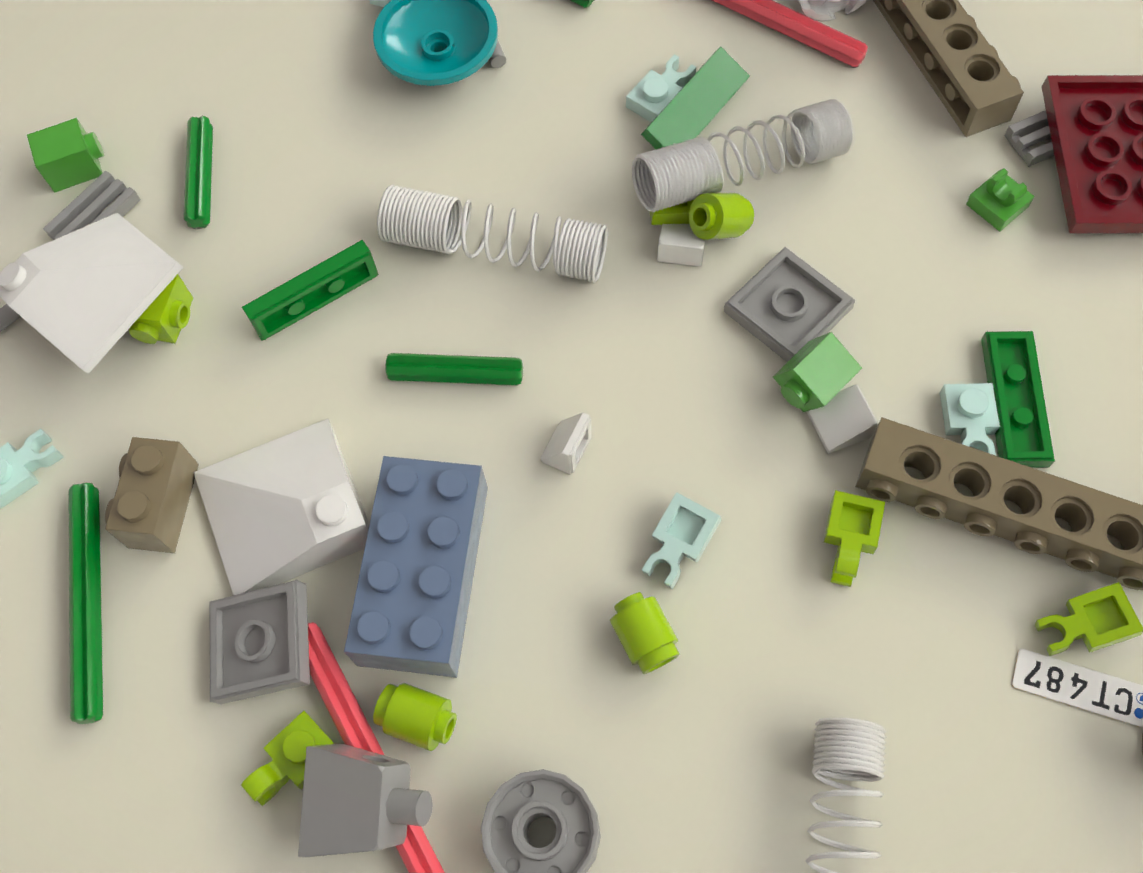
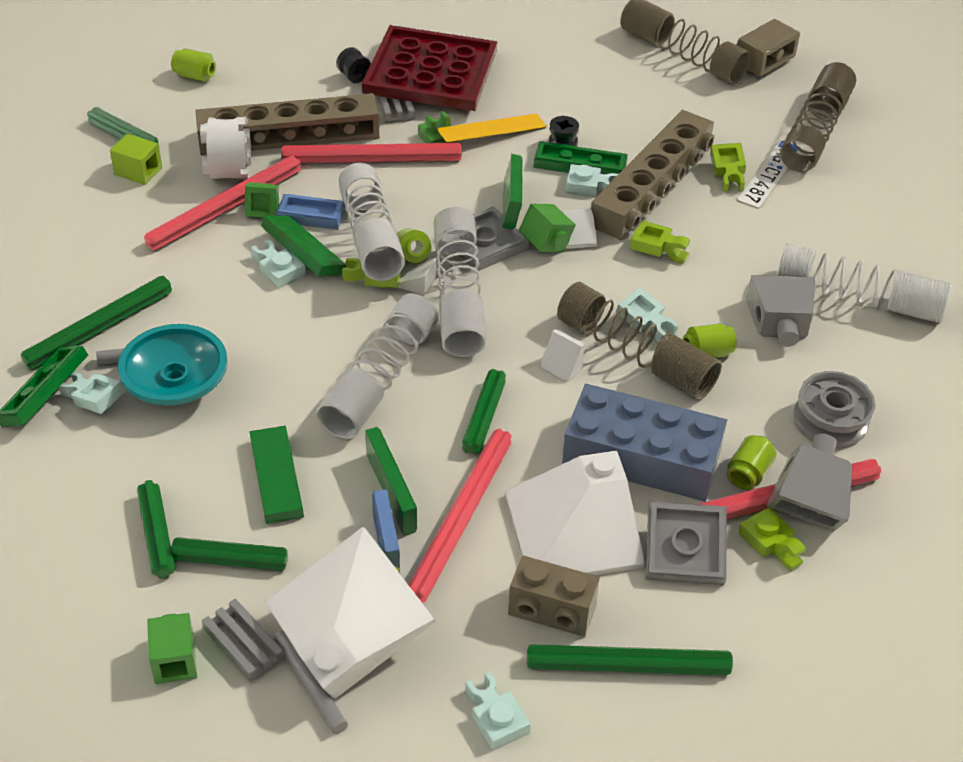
camera: 85 degrees left, 20 degrees down
(223, 306) = (385, 526): none -> medium blue tile
(224, 97) = (155, 529): none -> green axle
(286, 377) = (459, 515): none -> coral axle
(317, 182) = (276, 474): none -> green tile
(585, 585) = (673, 358): none -> dark tan piece
(599, 304) = (460, 309): none -> white piece
(749, 738) = (782, 306): none -> light grey torso
(764, 39) = (261, 199): none -> bright green tile
(771, 94) = (312, 211): none -> medium blue tile
(880, 312) = (512, 191): none -> green tile
(920, 138) = (374, 152): none -> coral axle
(1041, 265) = (491, 127): none -> yellow sticker
(1054, 368) = (564, 130): none -> black wheel
(1104, 56) = (353, 64): none -> black wheel

